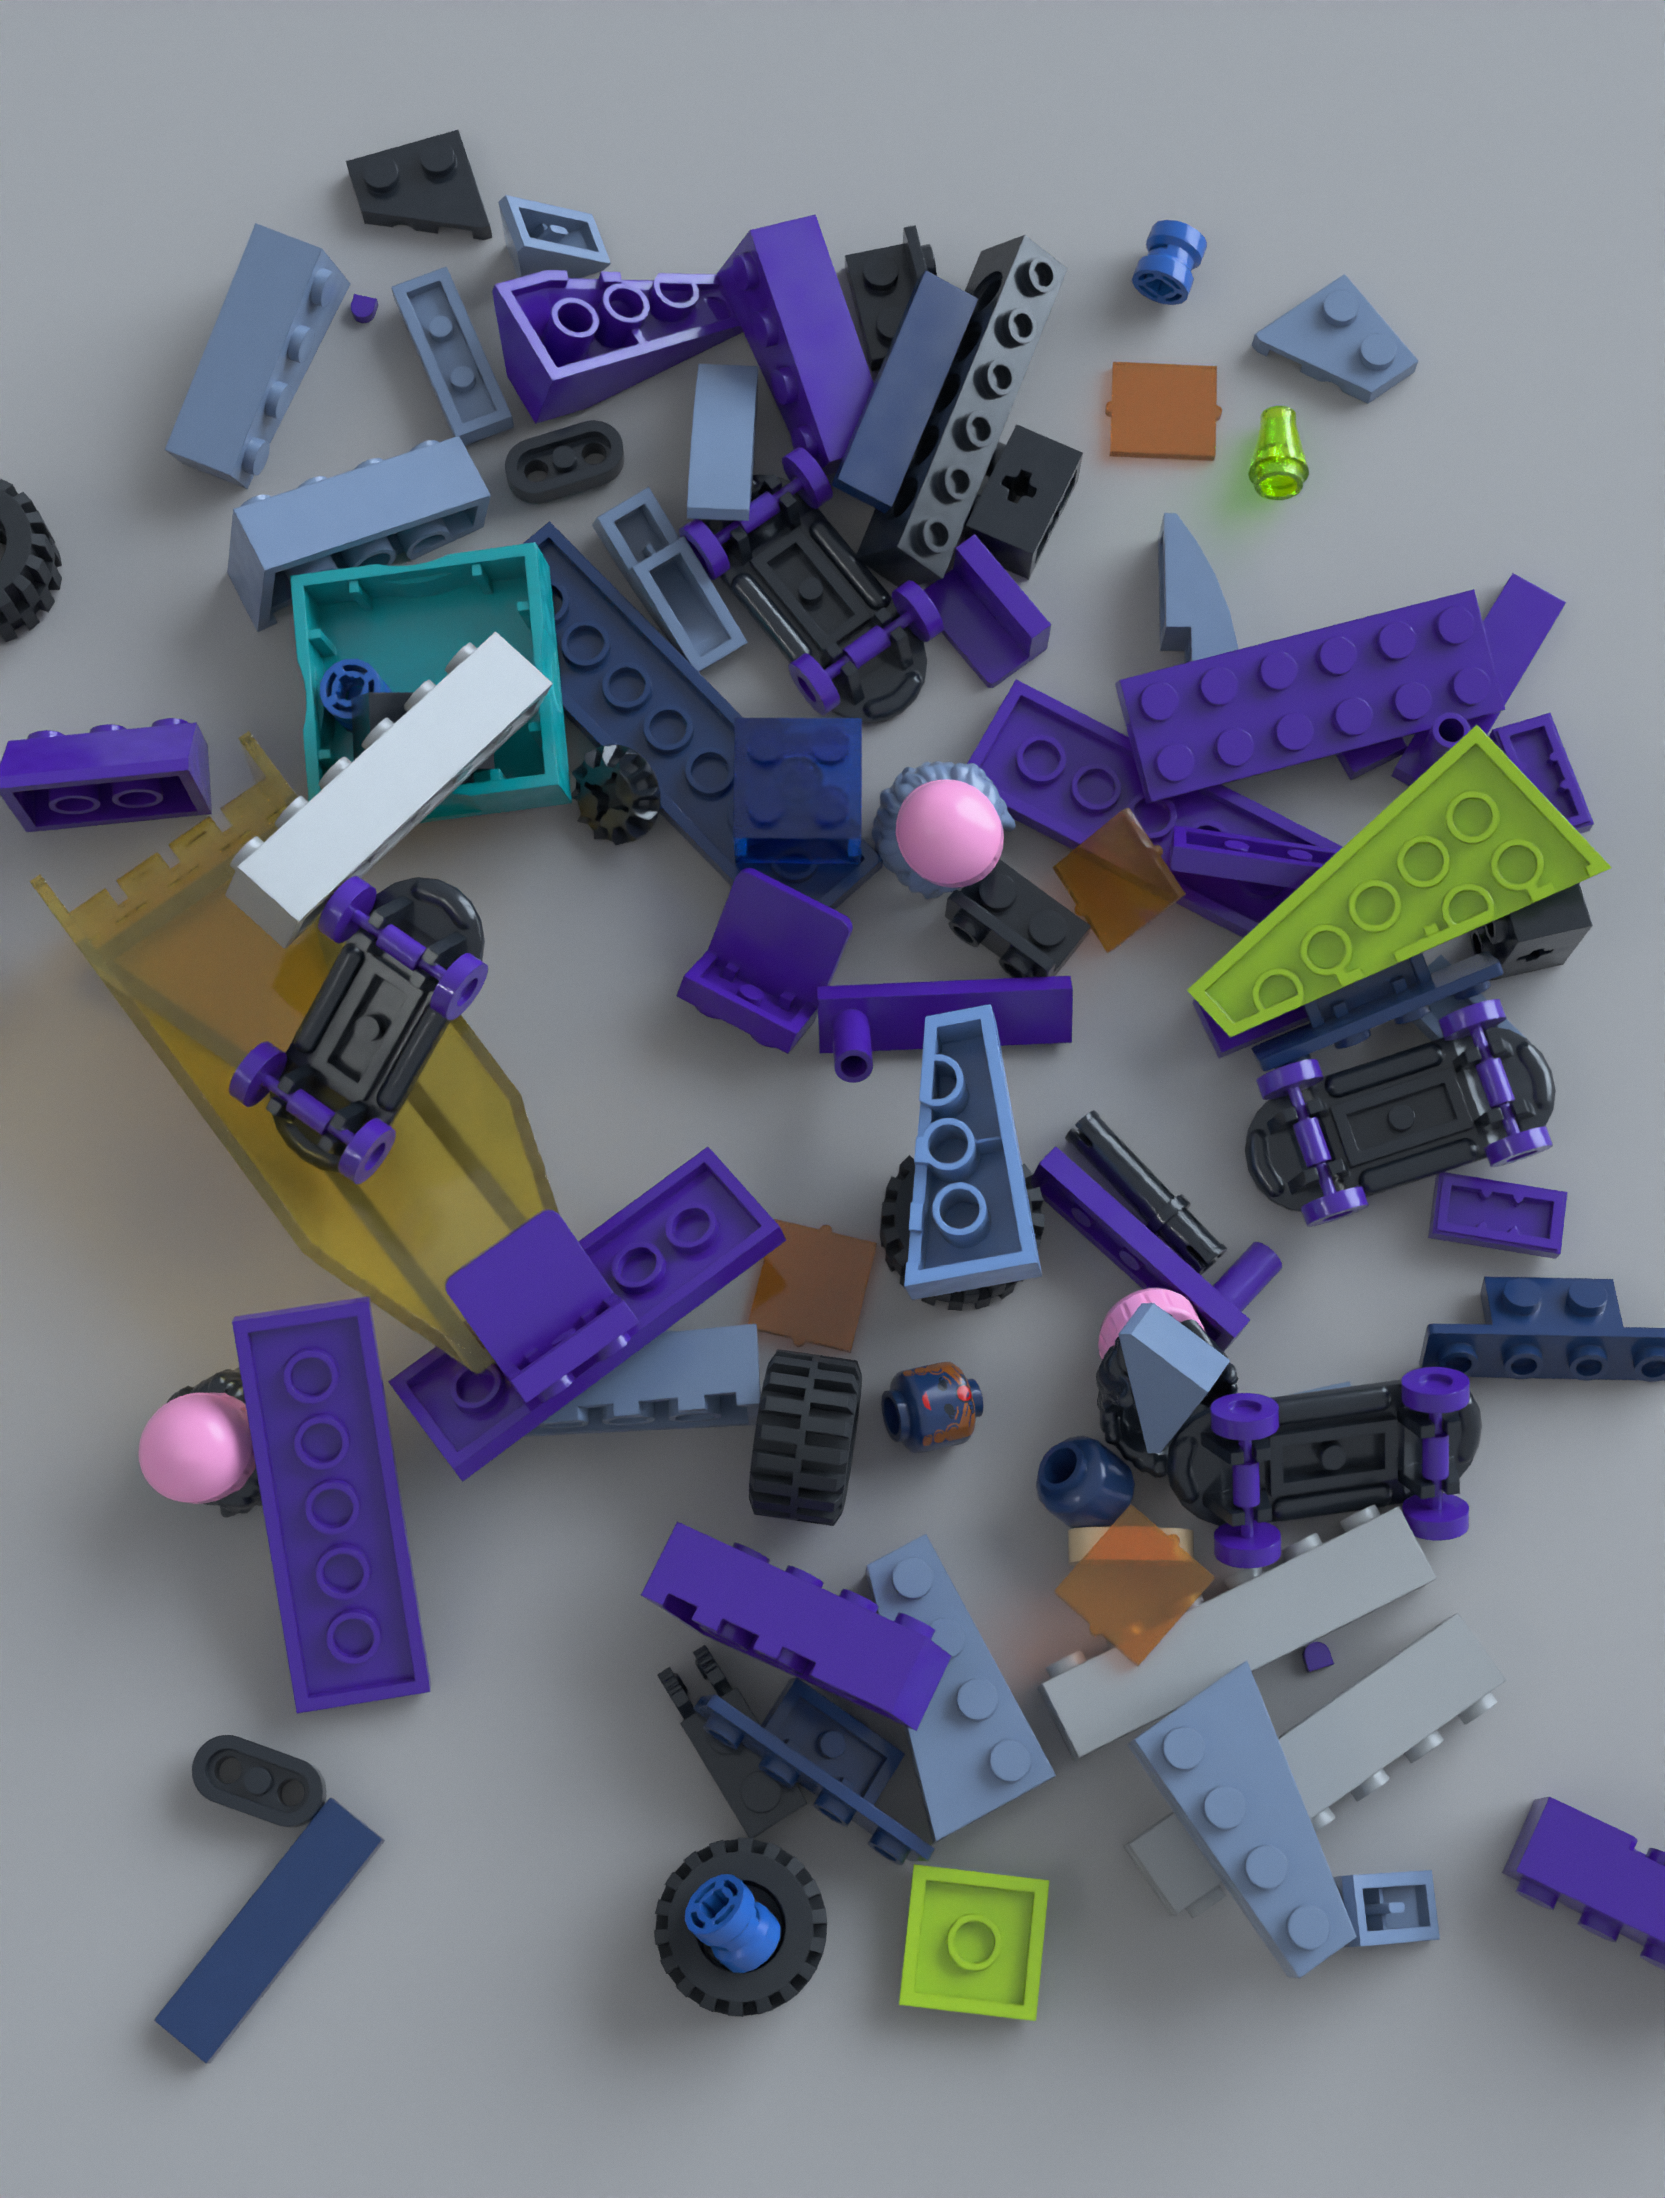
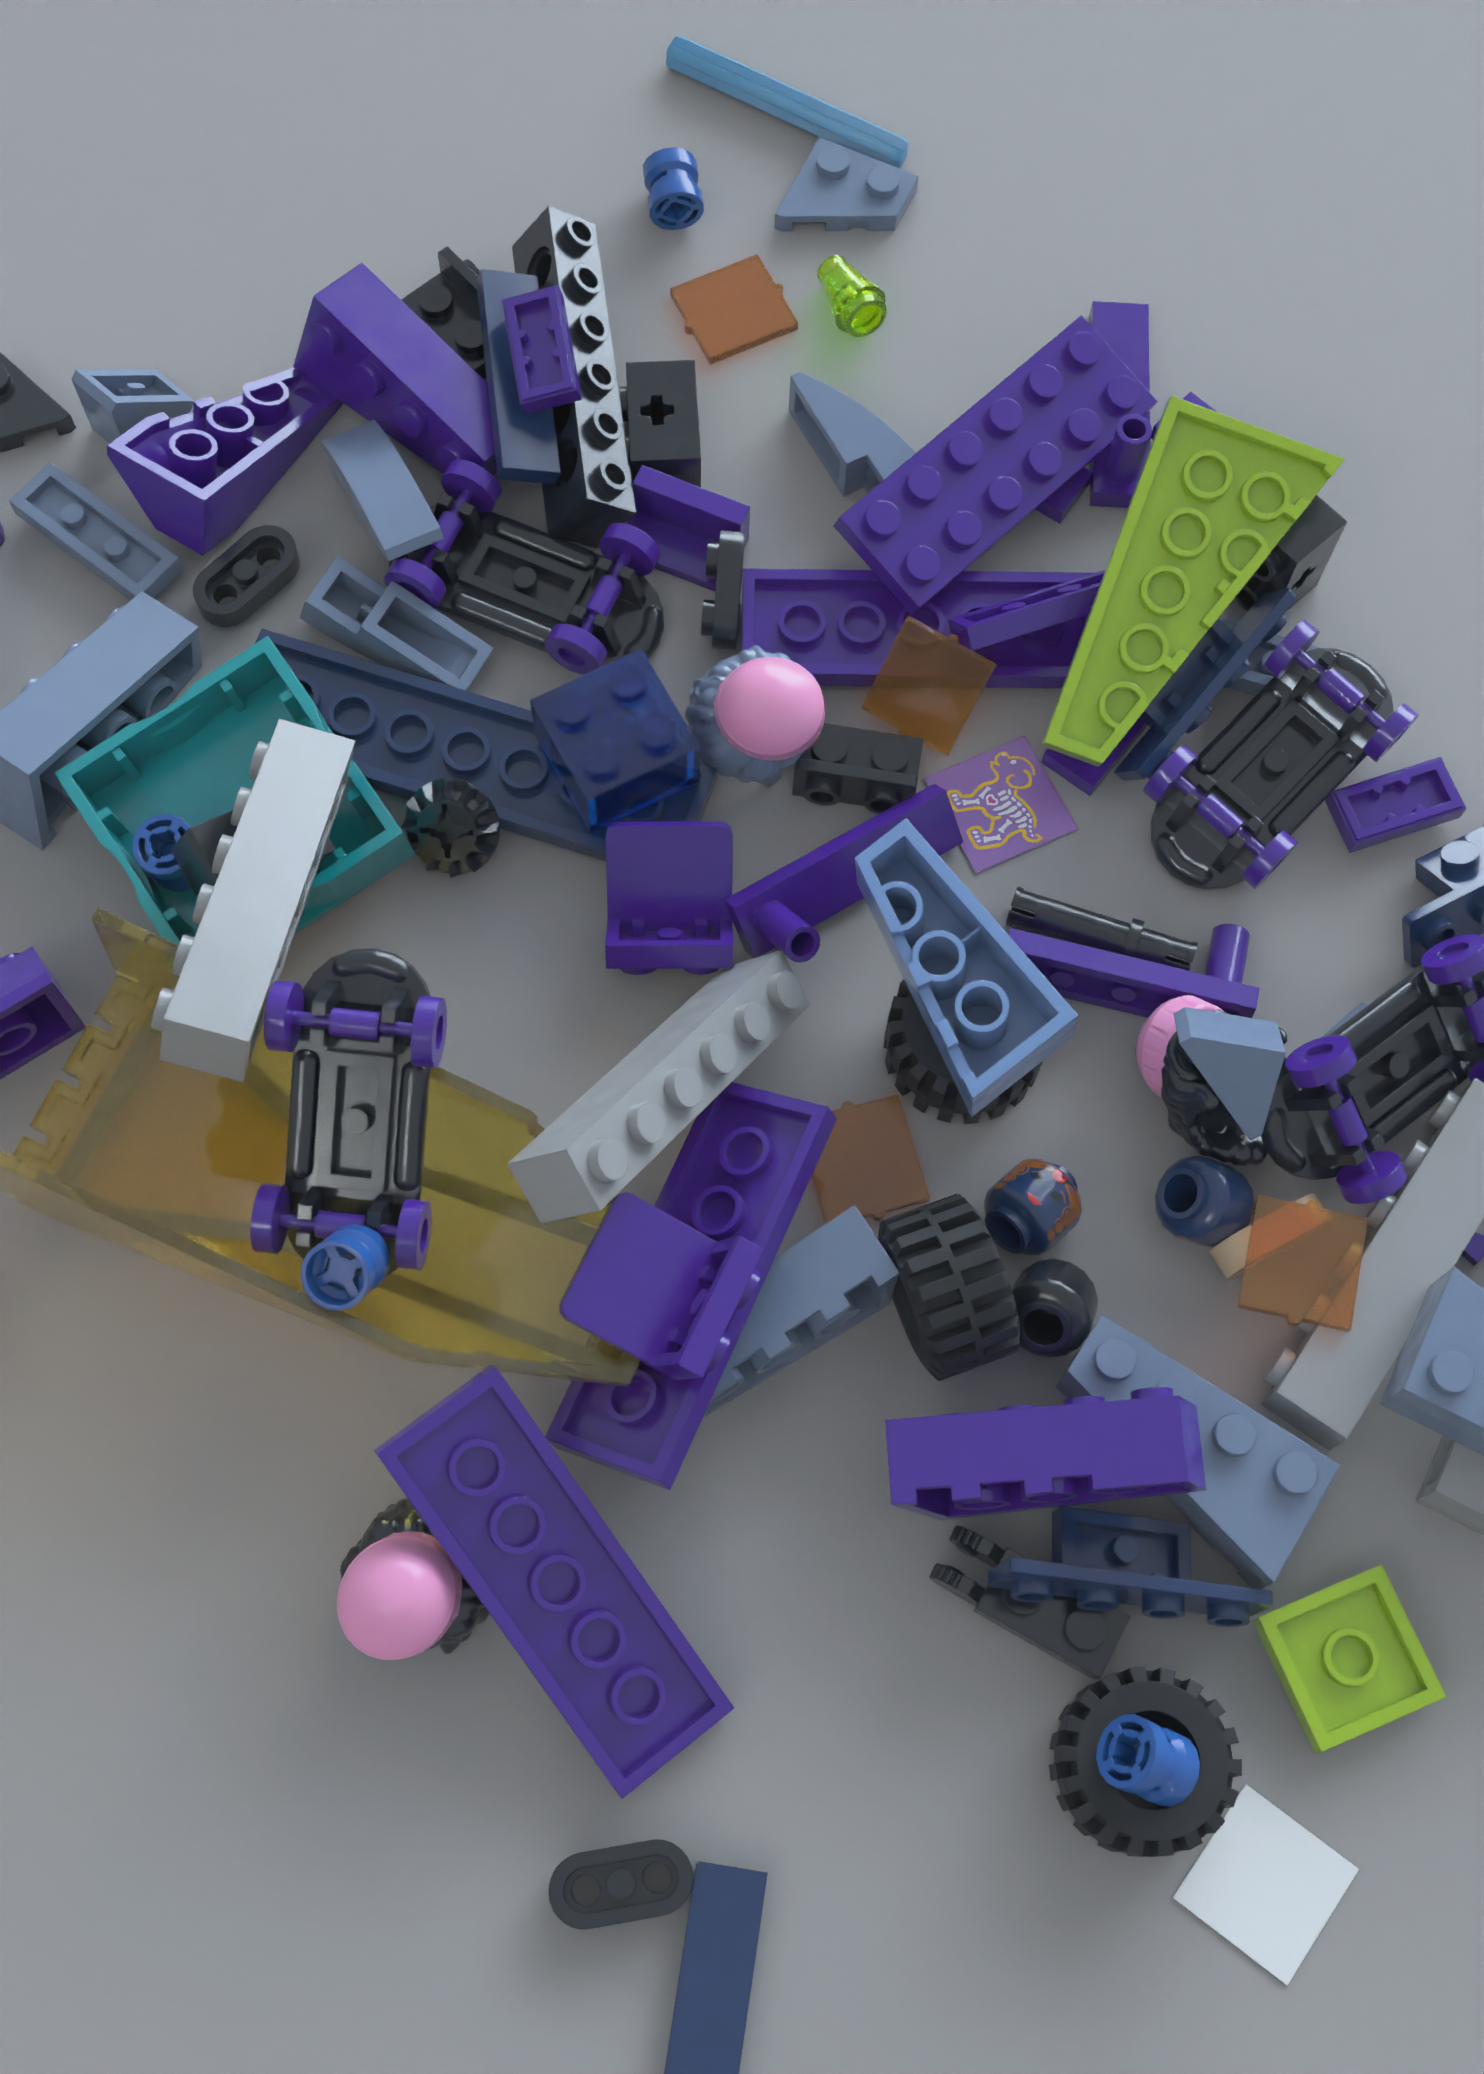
camera: 30 degrees left, 5 degrees down
(292, 1150) = (333, 1277): none -> blue wheel
(647, 1131) = (658, 1089): none -> light grey brick
(794, 2086) = (1266, 1884): none -> white sticker
(892, 1504) = (1054, 1307): none -> black head
(934, 380) = (541, 349): none -> dark purple plate
(999, 669) = (725, 564): none -> black plate
(1131, 1023) = (1003, 803): none -> medium lavender sticker
(1335, 222) = (785, 101): none -> dark azure axle

